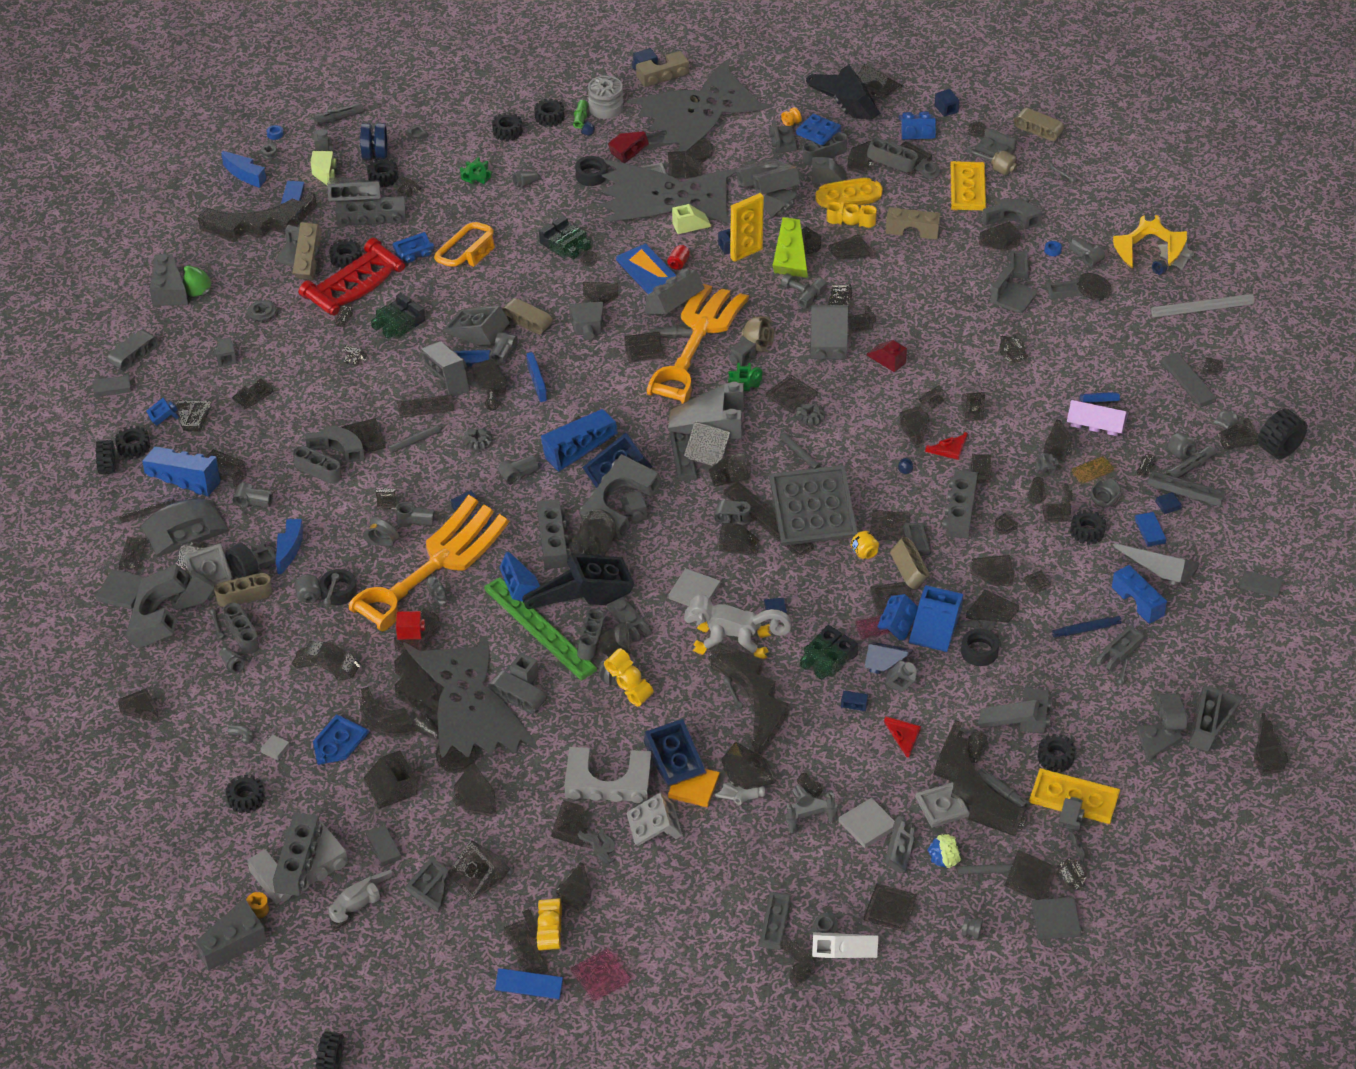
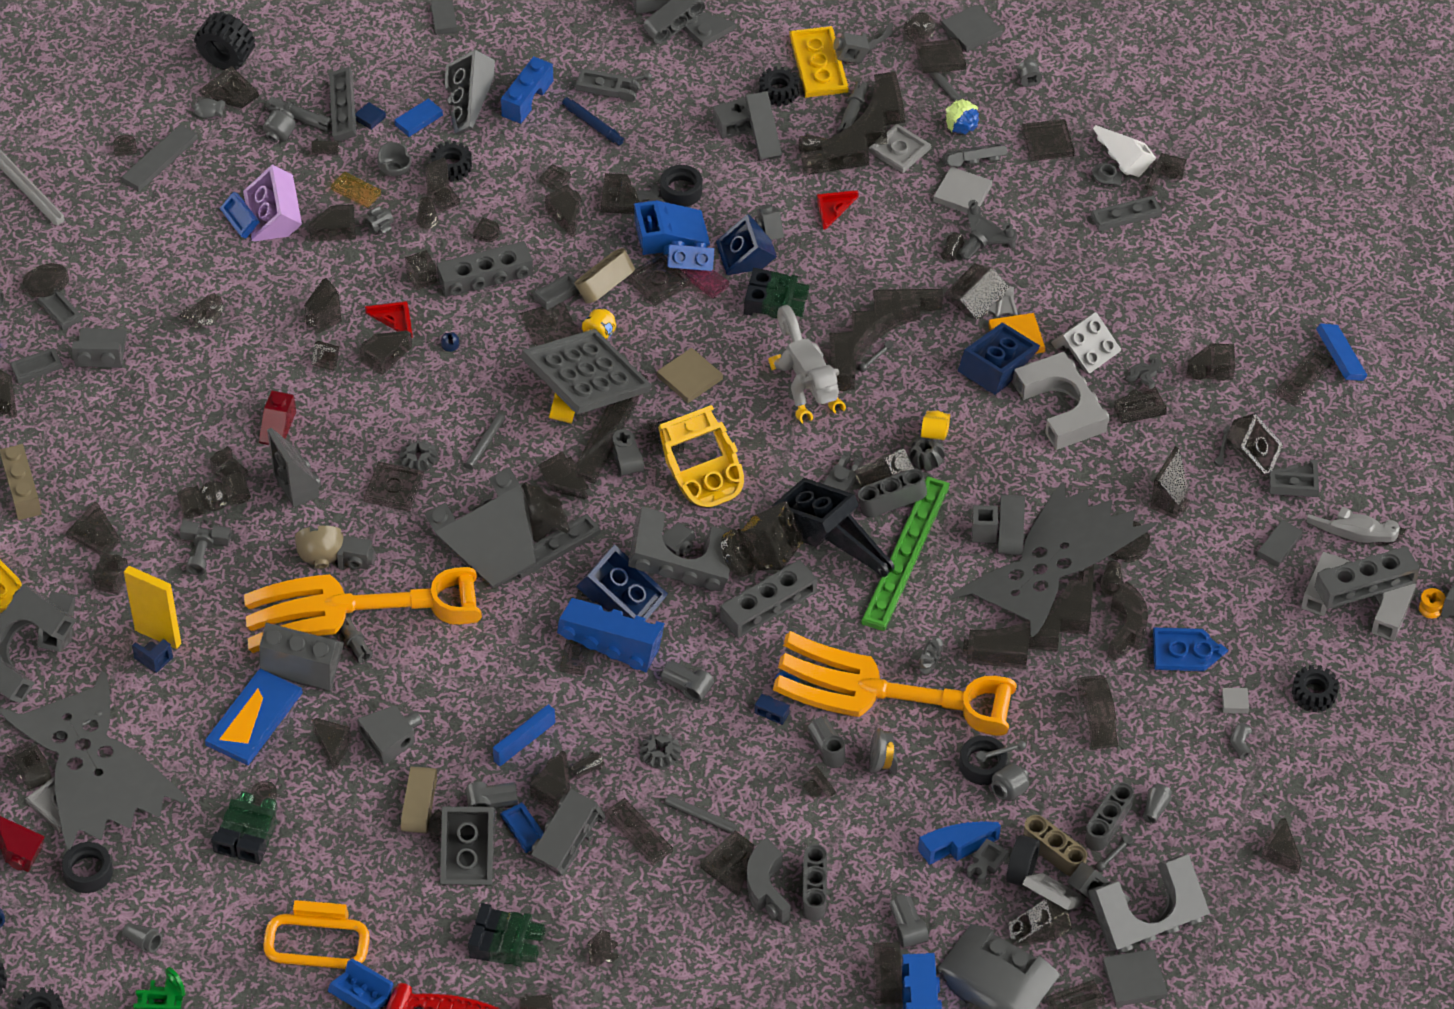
camera: 120 degrees left, 5 degrees up
(391, 780) = (1206, 567): clear smoke slope -> none
(409, 625) = (1010, 637): red brick -> none
(517, 577) = (859, 592): blue slope -> none
(530, 921) = (1279, 377): clear smoke tile -> none
(549, 924) = (1269, 362): yellow piece -> none
(600, 975) = (1286, 310): clear pink tile -> none
(643, 347) = (404, 656): clear smoke bracket -> none
(678, 257) = (215, 691): red brick -> none
(679, 544) = (713, 480): none -> yellow slope
(688, 218) = (138, 709): yellowish green slope -> none
(693, 584) = (759, 444): light grey tile -> none
(750, 380) = (403, 523): green piece -> none
(776, 604) = (736, 367): dark blue tile -> none
(786, 579) = (689, 375): none -> dark tan tile
(790, 249) = (160, 560): lime wedge -> none
(851, 214) = (33, 551): yellow piece -> none
(854, 700) = (820, 255): dark blue piece -> none

